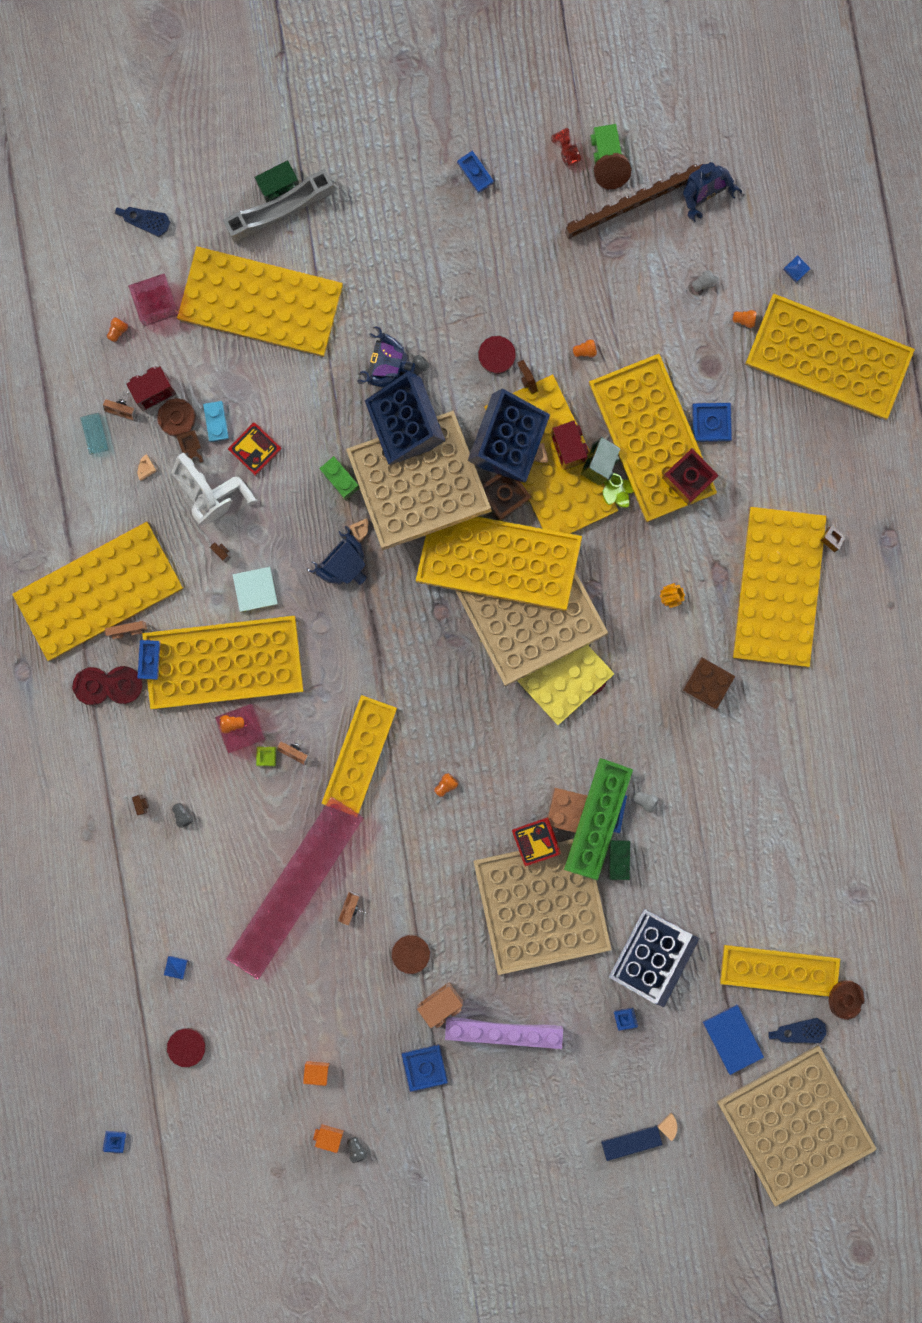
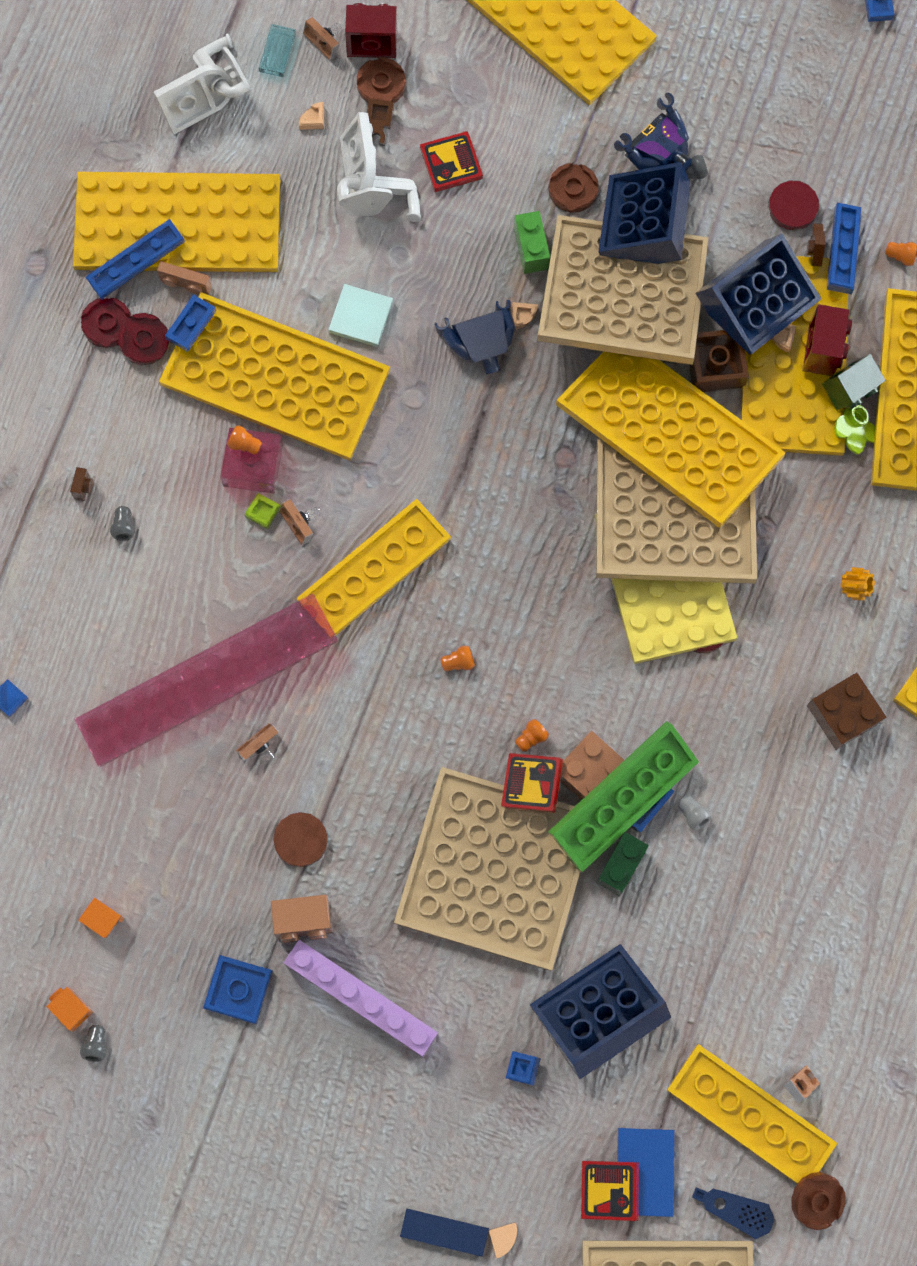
camera: 25 degrees right, 10 degrees down
(64, 491) = (203, 89): none -> white plate
(86, 635) = (135, 259): none -> blue tile
(216, 421) = (423, 109): medium azure plate -> none
(221, 551) = (346, 251): reddish brown plate -> none
(345, 422) = (573, 187): none -> copper tile
(518, 809) = (532, 735): none -> orange piece
(546, 369) = (844, 248): none -> blue tile
(718, 1063) = (610, 1190): none -> tile
(800, 936) = (799, 1086): none -> piece

